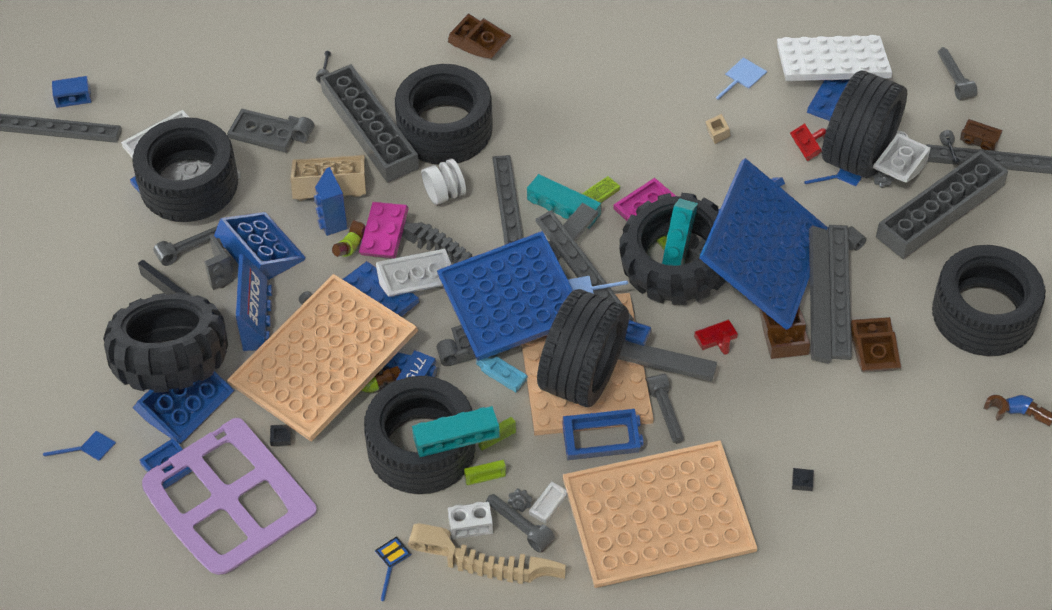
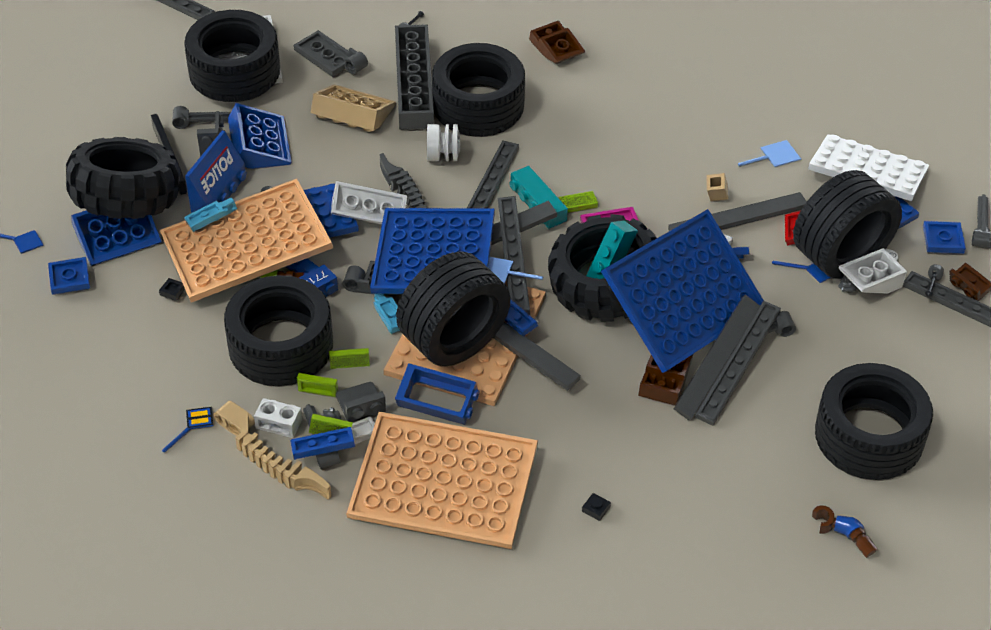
camera: 25 degrees right, 5 degrees down
(226, 497) = (94, 318): lavender window -> none
(272, 344) = (210, 214): none -> medium azure hinge
(330, 204) = (331, 124): blue slope -> none
(351, 241) = (332, 164): reddish brown piece -> none
(384, 230) = (367, 162): dark pink plate -> none
(455, 431) = (296, 332): teal brick -> none
(530, 509) = (323, 424): none -> lime tile
(534, 471) = (361, 401): none -> dark grey bracket
(534, 527) = (322, 443): none -> blue plate
(658, 387) = (516, 377): dark grey axle -> none
(717, 334) = (600, 356): red plate -> none
(749, 149) = (755, 211): none -> dark grey tile
(875, 344) = (742, 419): reddish brown slope -> none
(933, 101) = (944, 237): none -> blue plate
(941, 204) = (889, 325): dark grey brick -> none

